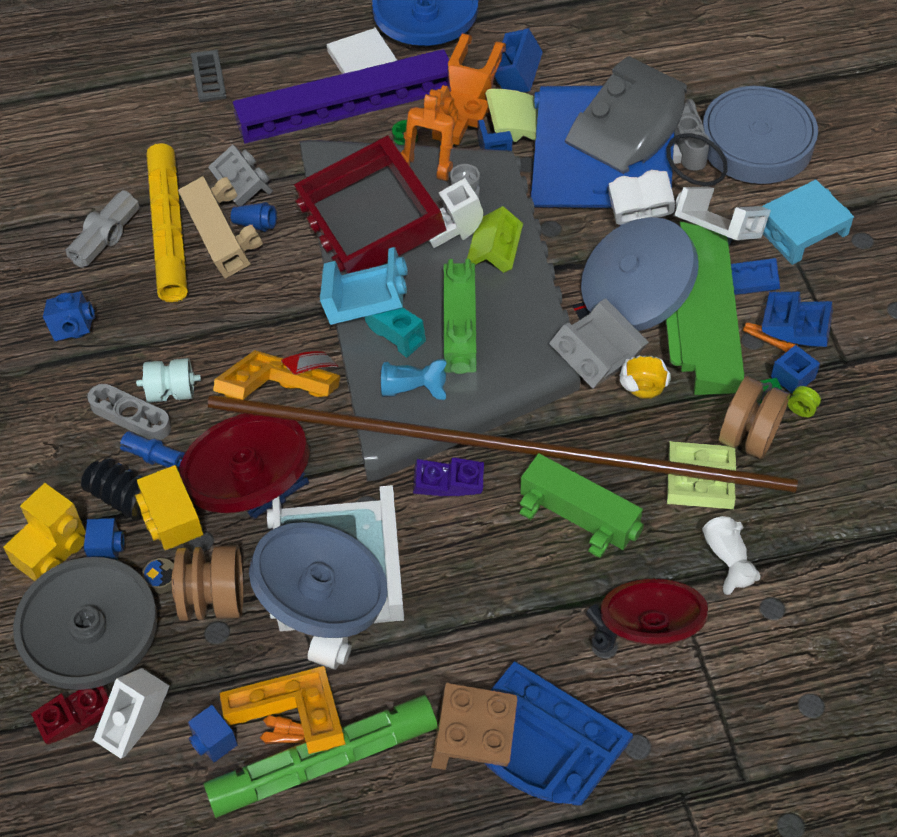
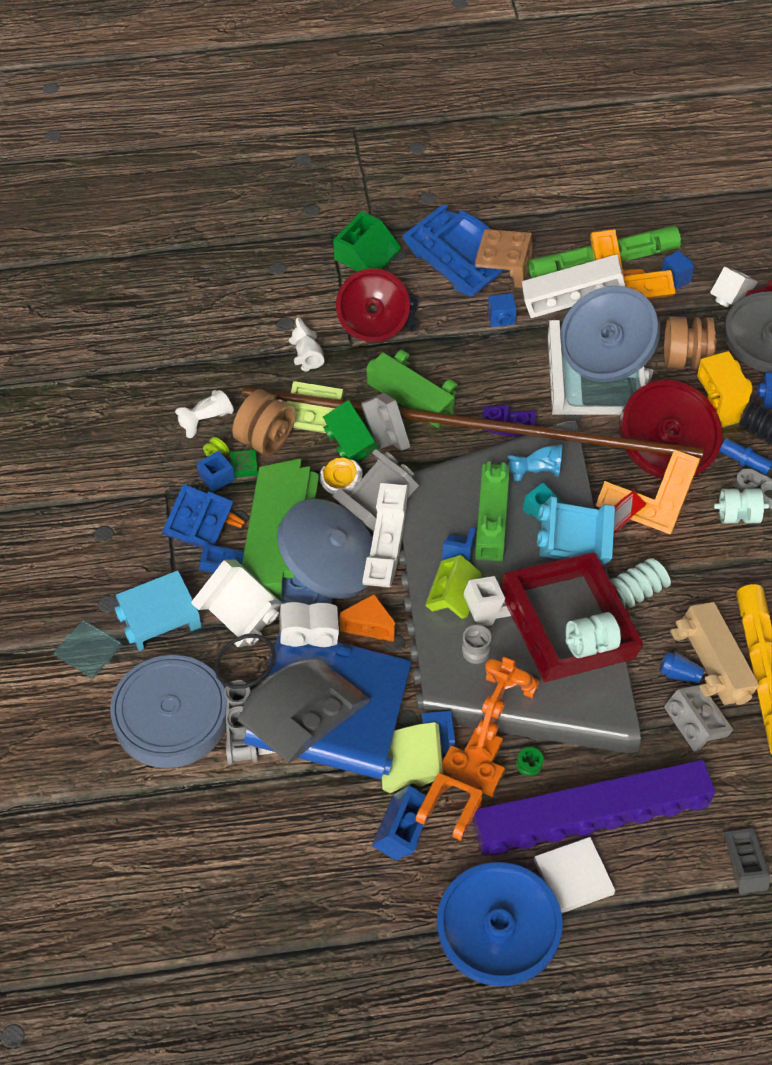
camera: 175 degrees left, 0 degrees up
(290, 285) = (641, 580): none -> light aqua piece
(340, 160) = (592, 635): none -> light aqua wheel
(368, 660) = (567, 286): none -> white brick
(471, 636) = (501, 310): none -> blue plate
(494, 275) = (459, 546): none -> blue panel
(576, 283) = (387, 535): none -> white slope
(580, 230) = (368, 619): none -> orange slope
(598, 430) = (385, 422): none -> light grey bracket
(644, 422) = (350, 432): none -> green brick
(686, 727) = (365, 244): none -> green slope
(827, 450) = (209, 407): none -> white animal
(864, 194) = (88, 649): none -> clear light blue piece

